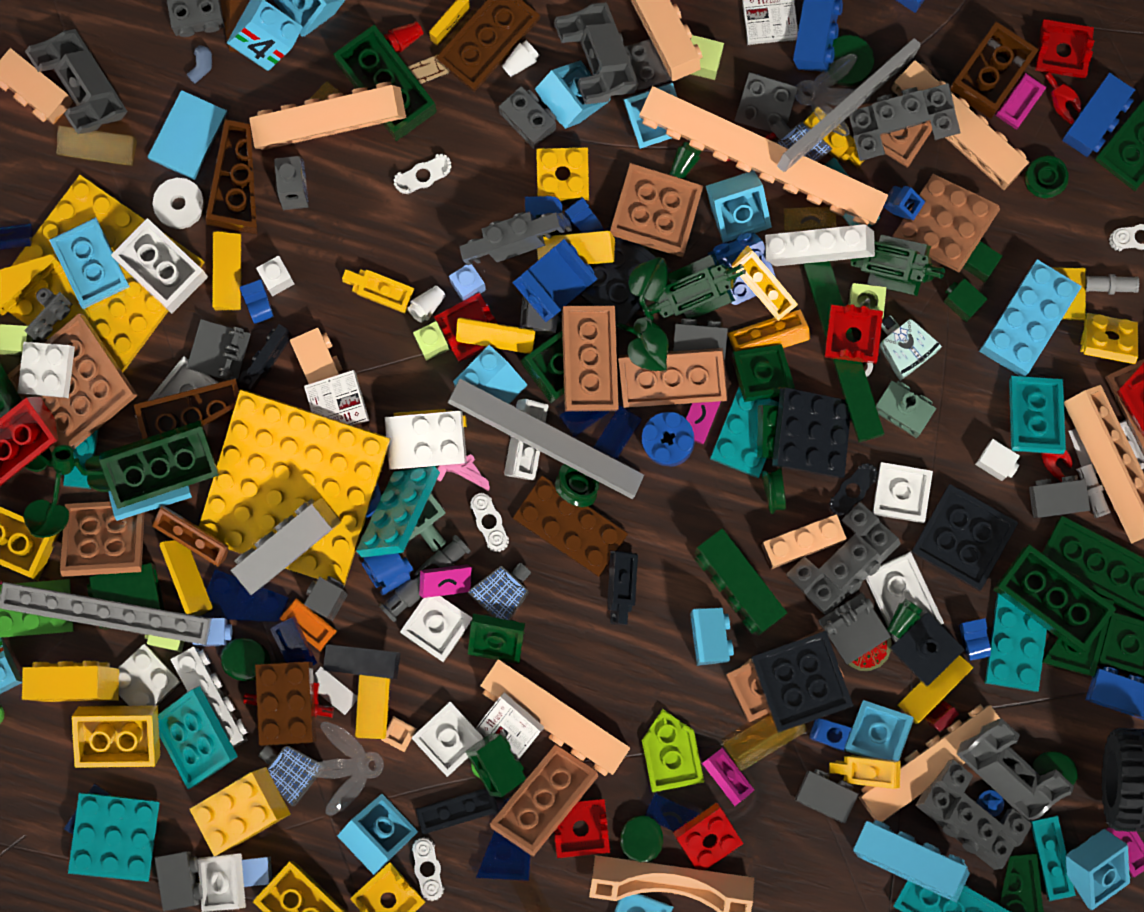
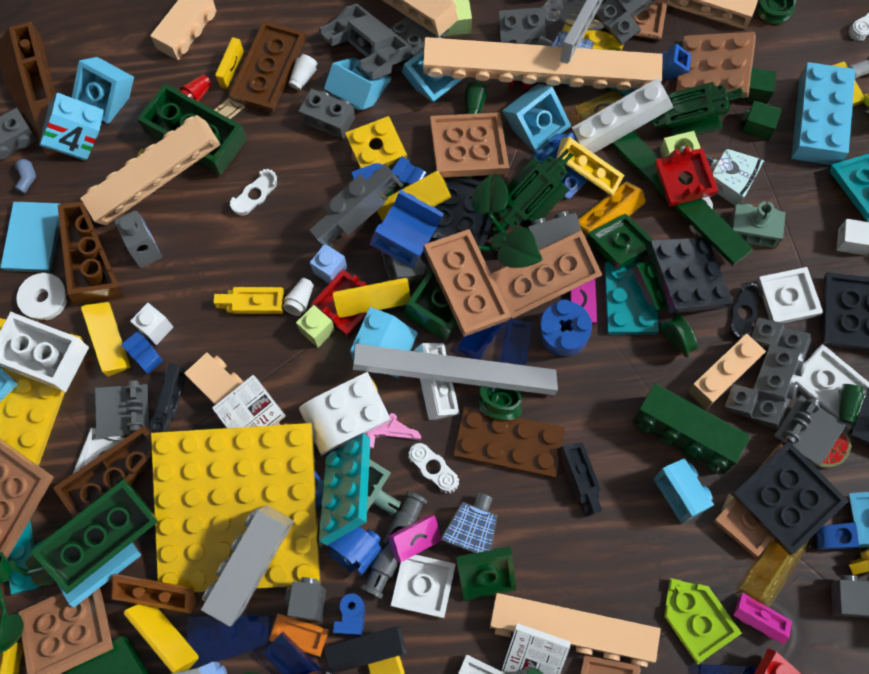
camera: 20 degrees left, 10 degrees down
(362, 628) = (353, 616): none -> blue leg

